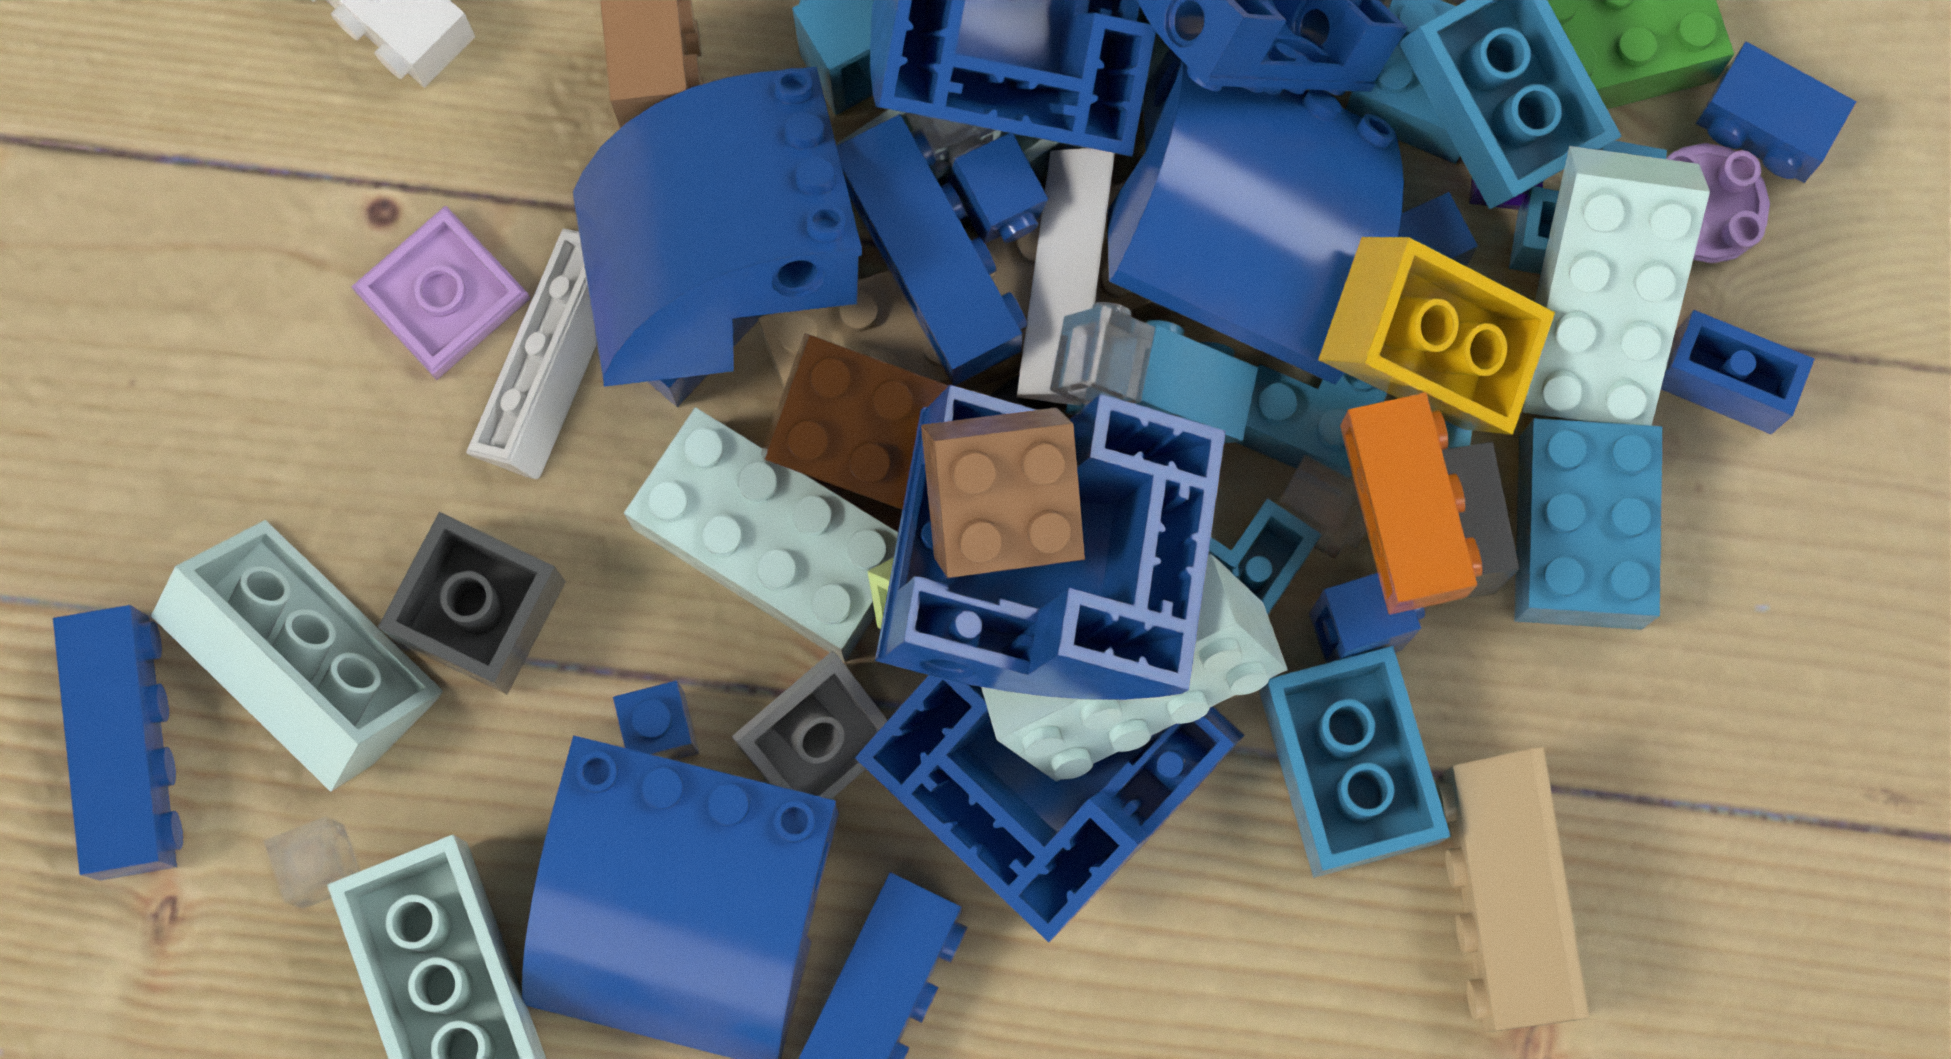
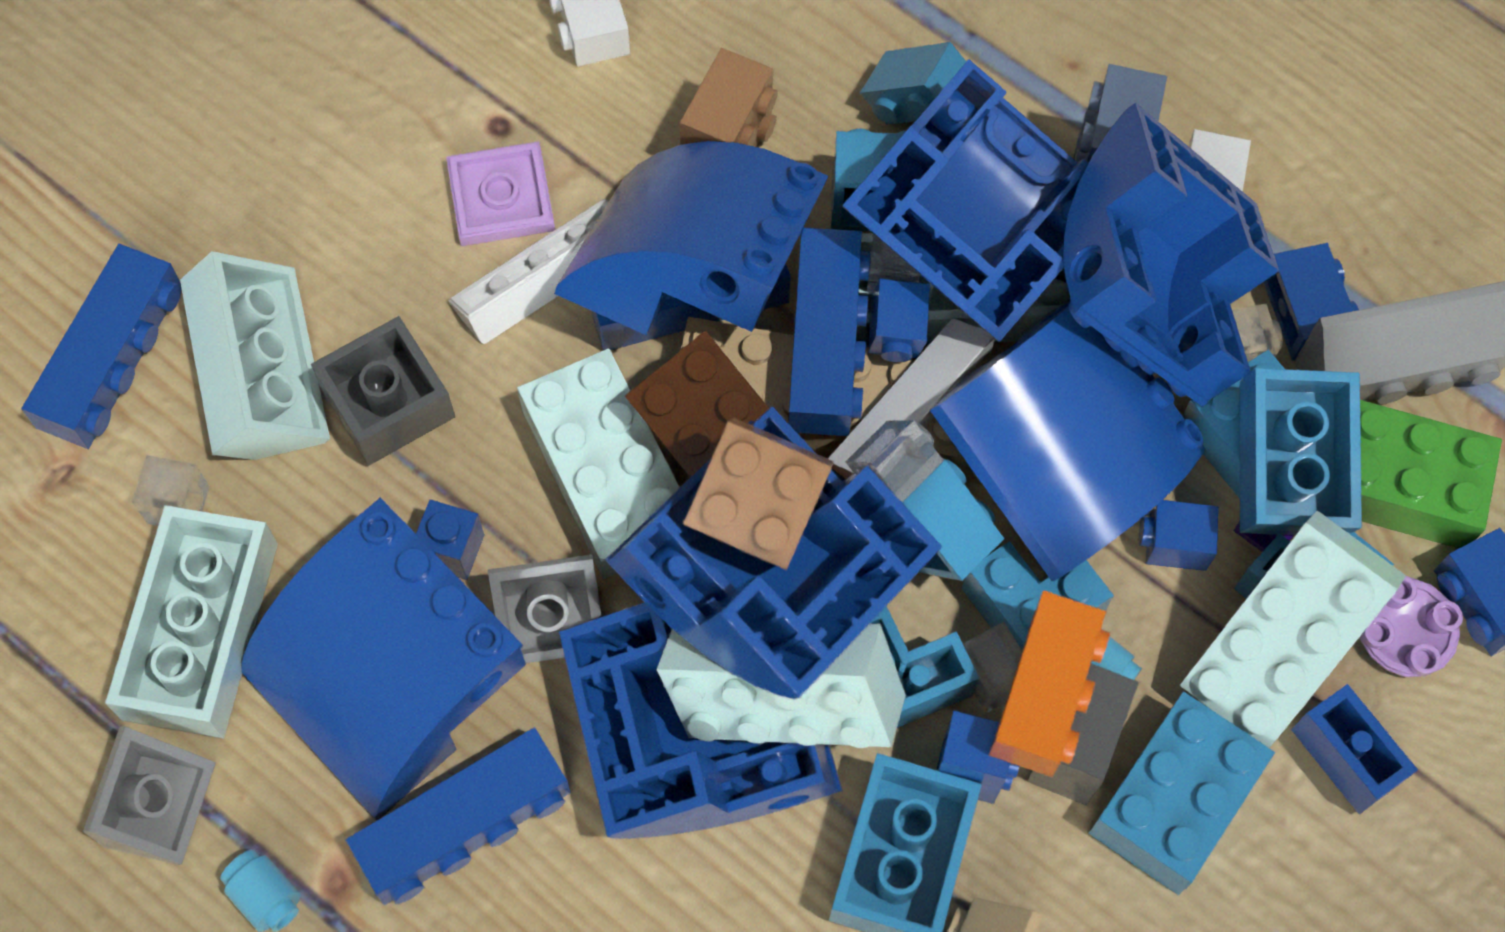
camera: 30 degrees right, 10 degrees down
(1437, 329) = (1146, 579): yellow brick -> none

